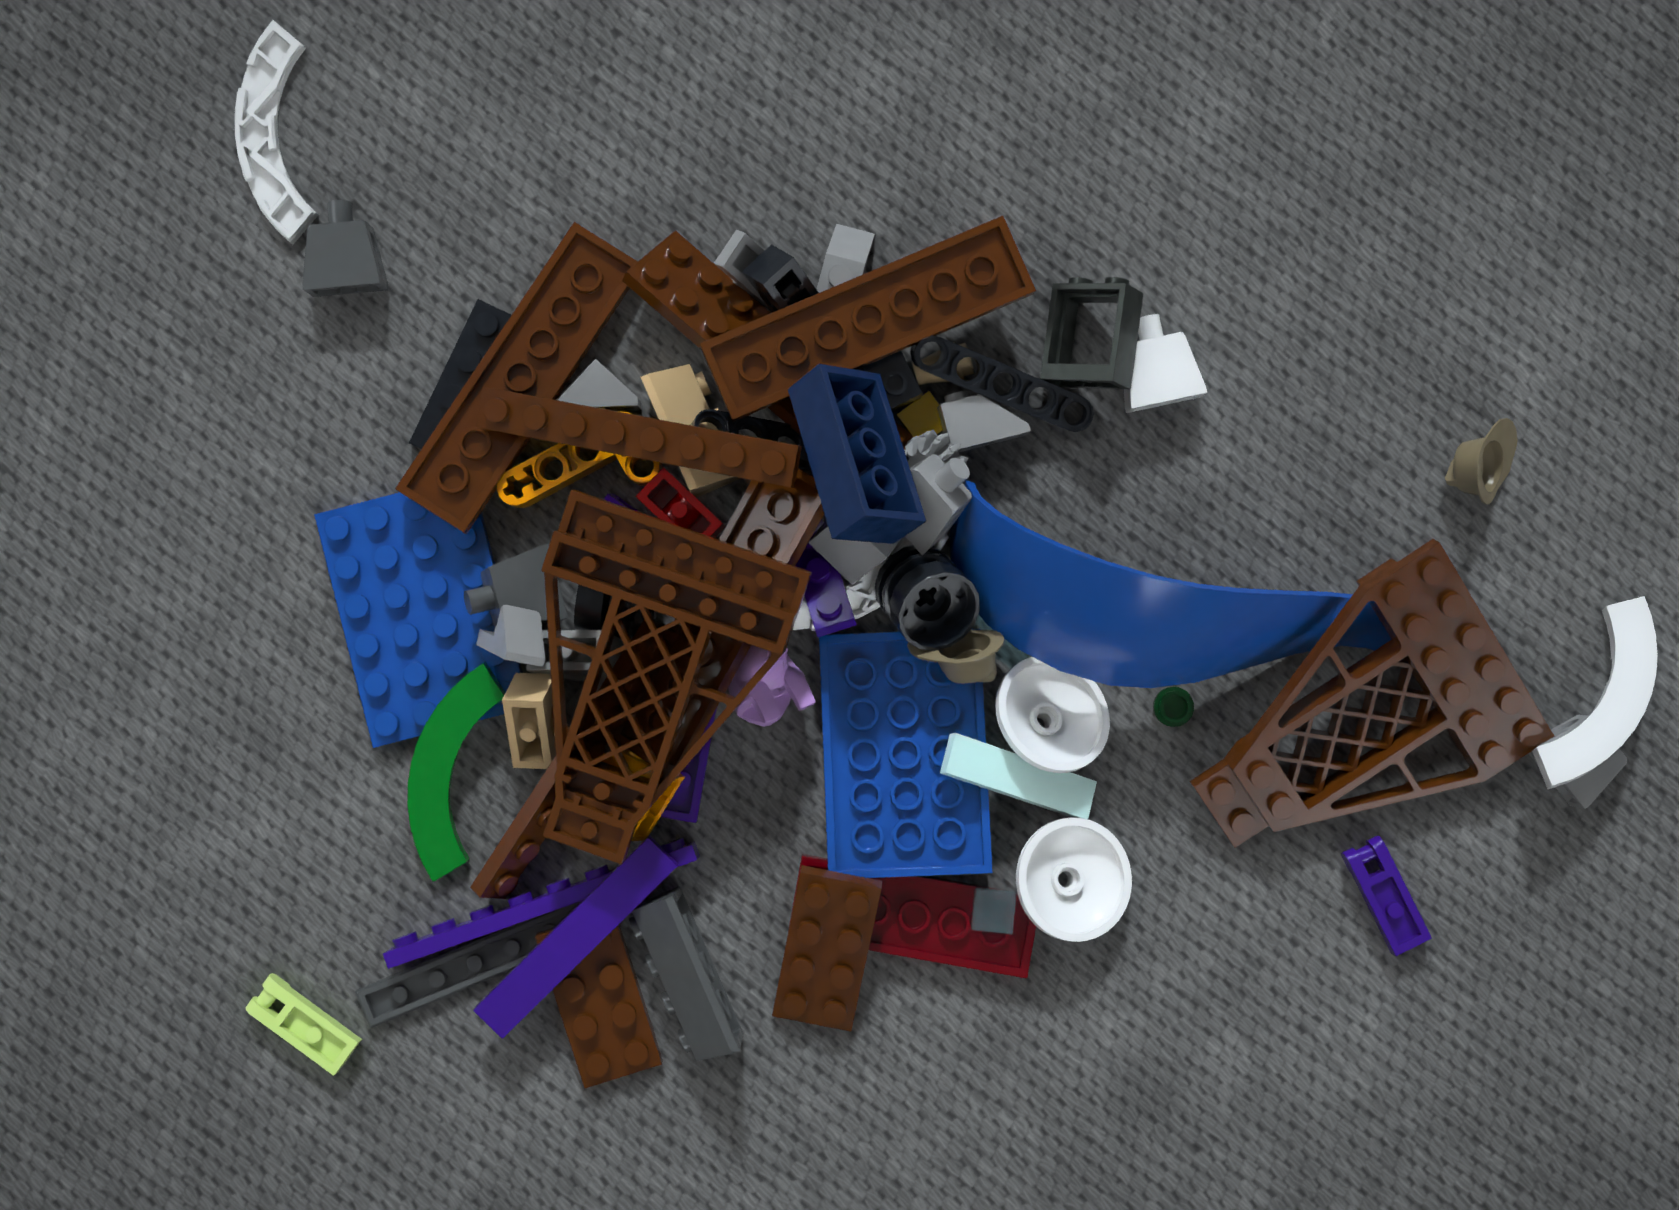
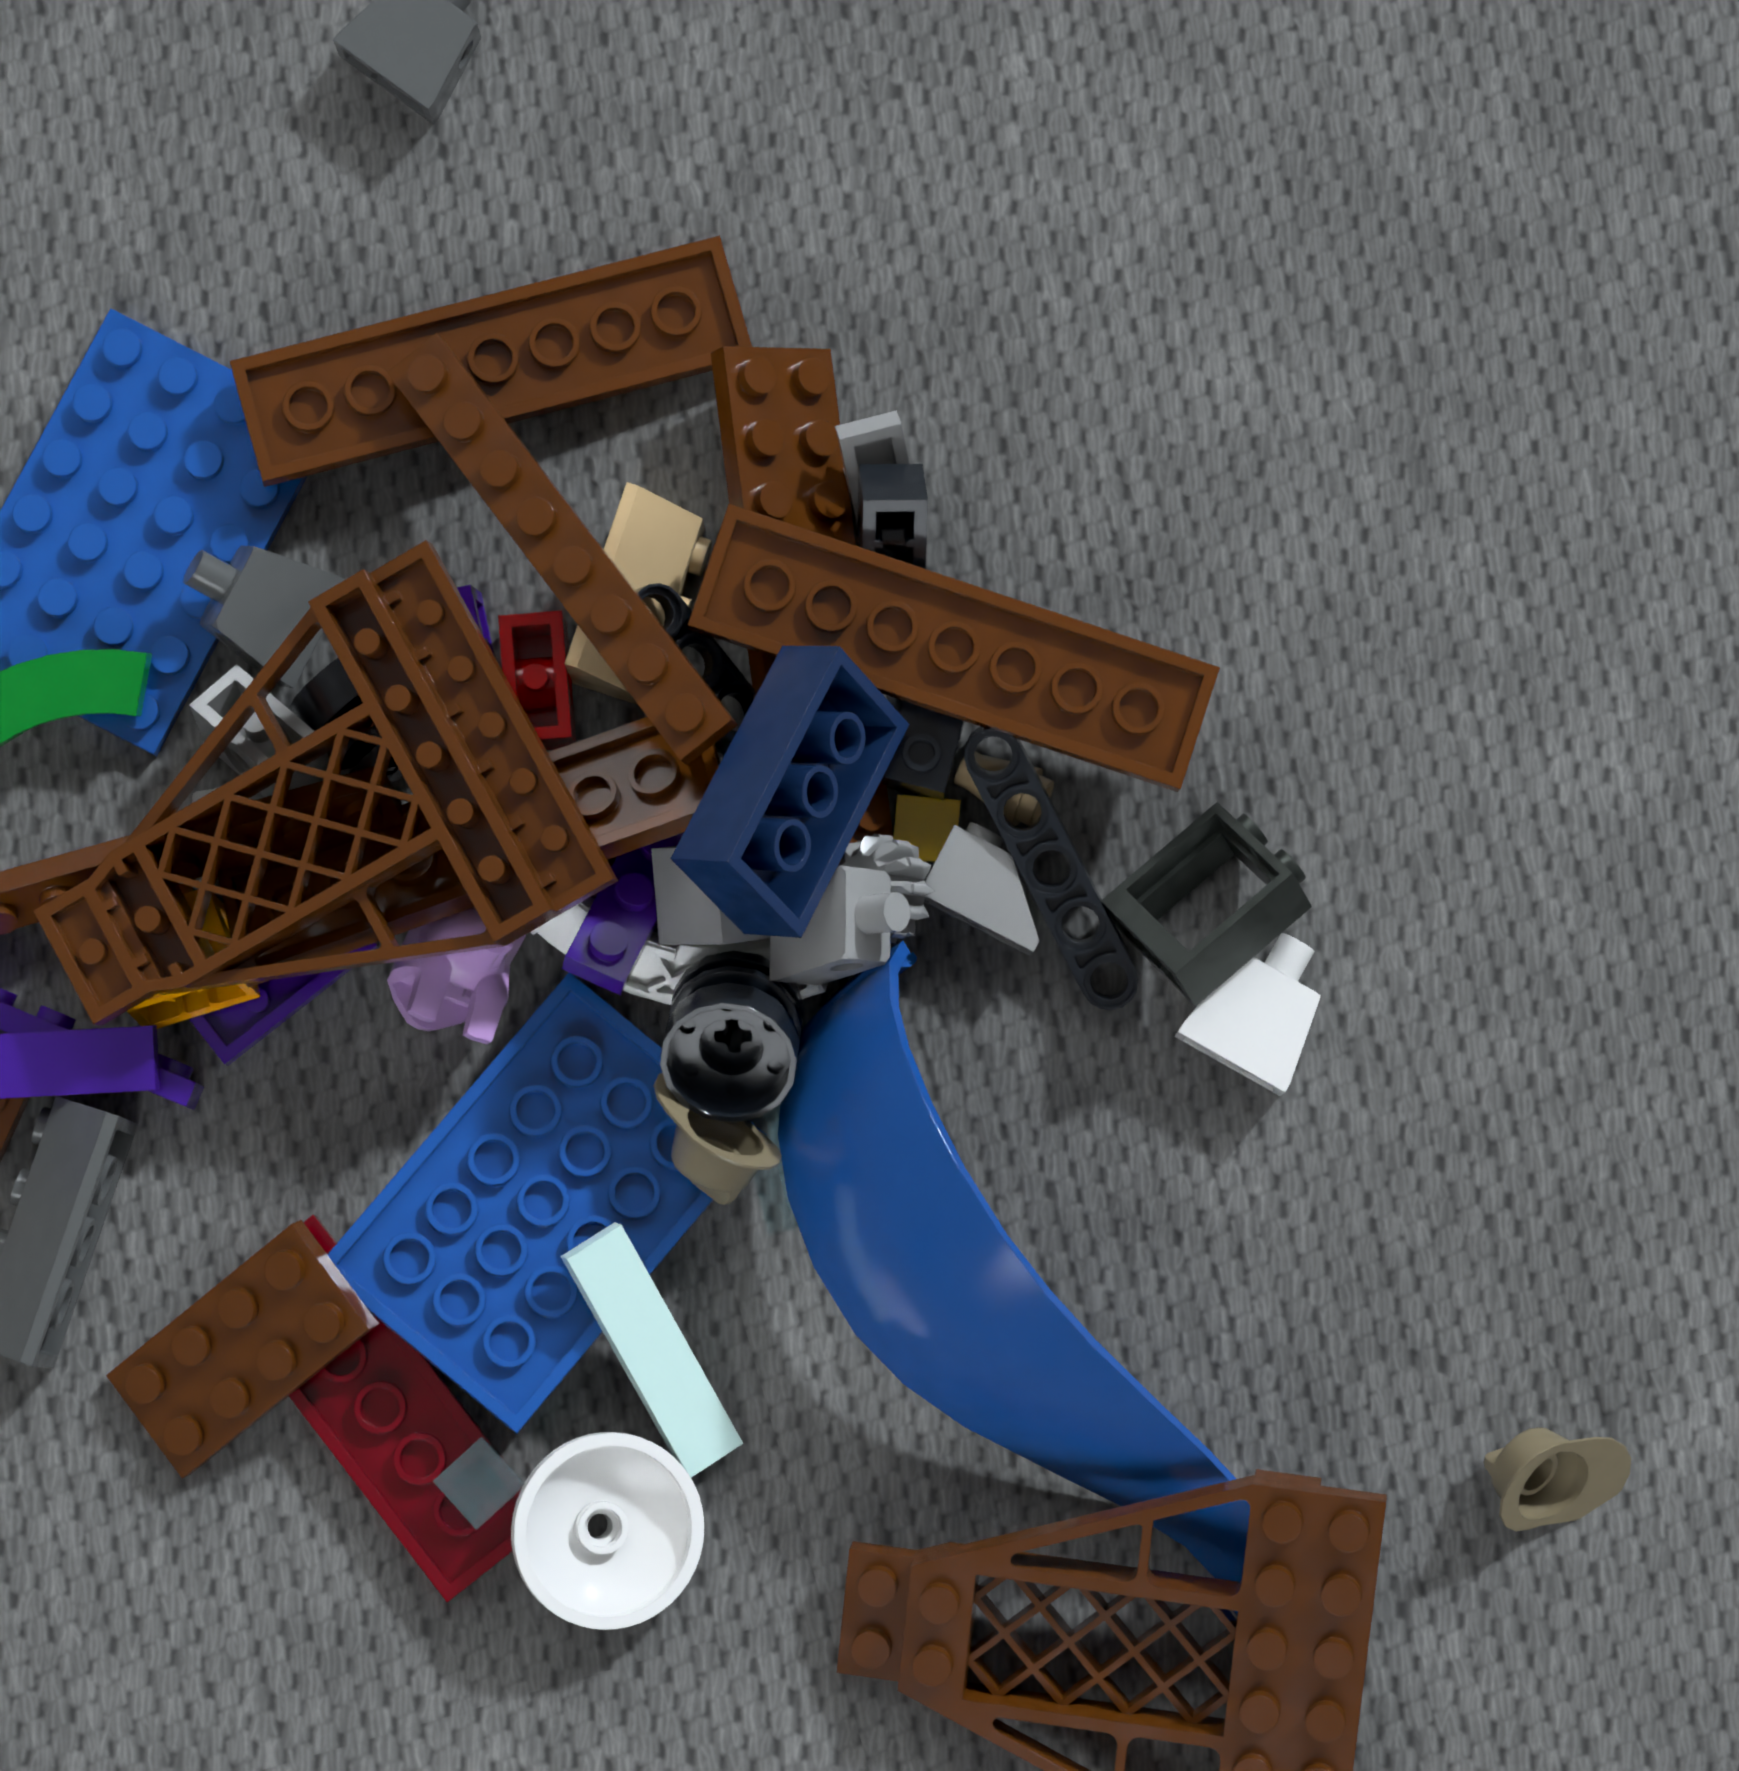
camera: 45 degrees right, 5 degrees down
(475, 340) = (481, 271): black plate -> none
(516, 636) = (212, 654): light grey slope -> none
(530, 720) = (139, 767): tan brick -> none
(573, 470) = (456, 523): light orange beam -> none
(601, 389) = (572, 458): light grey slope -> none
(845, 256) = (1000, 555): light grey slope -> none
(1069, 706) = (790, 1323): white dish -> none
(1173, 706) = (915, 1437): dark green plate -> none

